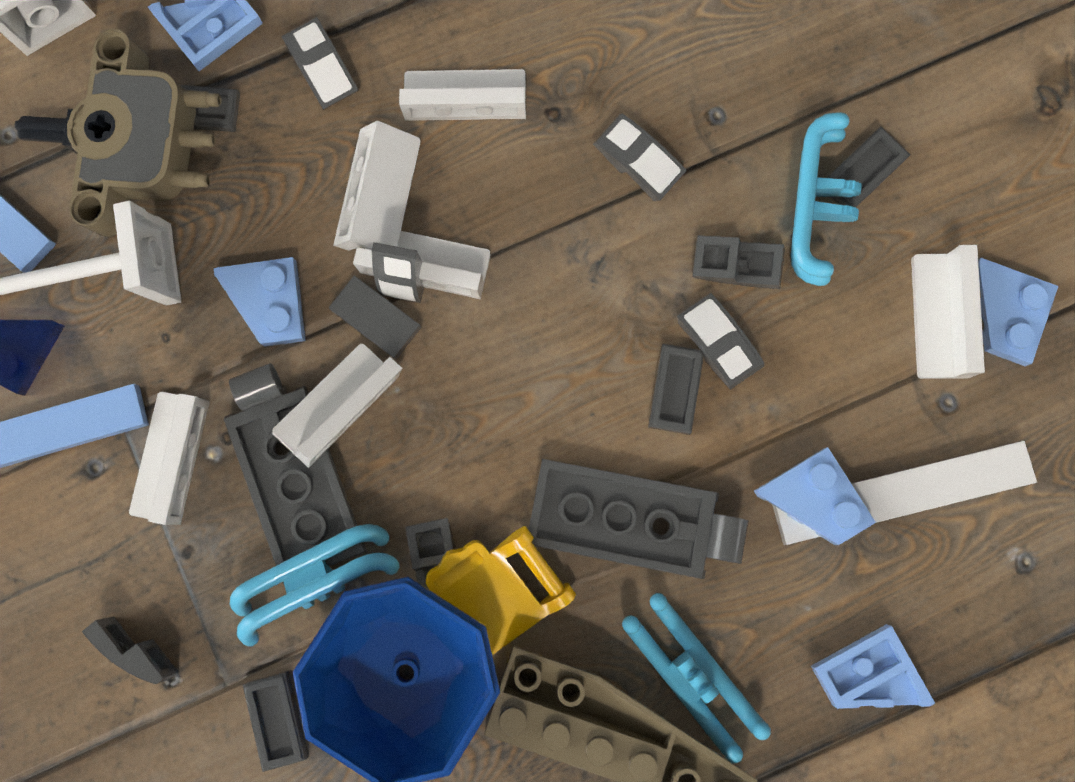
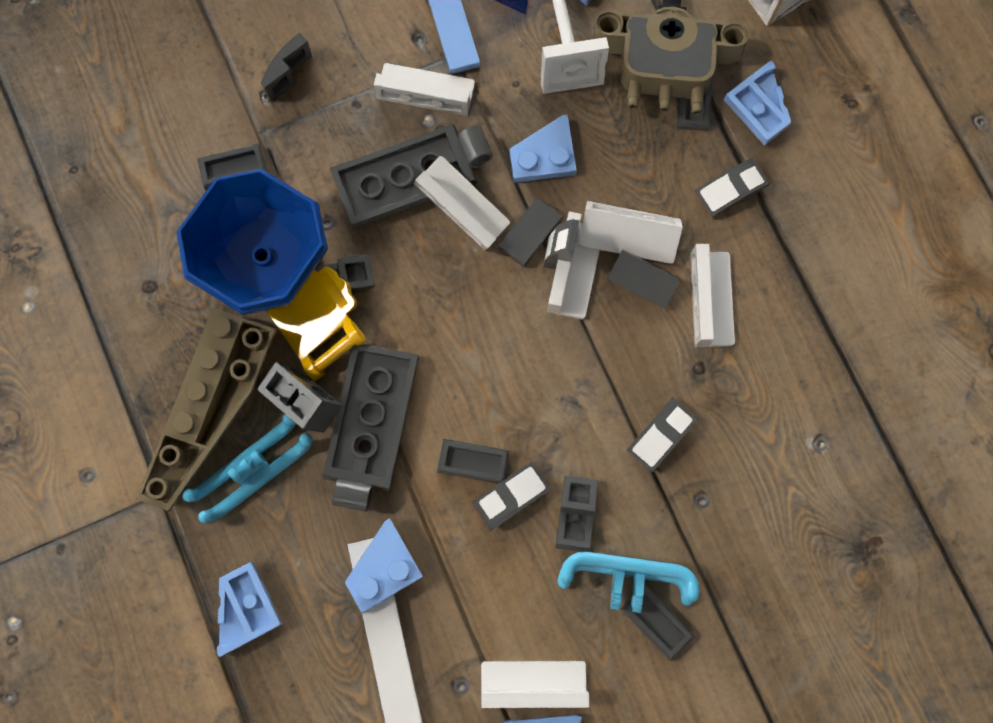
camera: 80 degrees right, 5 degrees down
(308, 578) = (332, 185): medium azure piece -> none
(440, 175) = (643, 278): none -> dark grey tile
(604, 611) = (299, 397): none -> dark grey brick

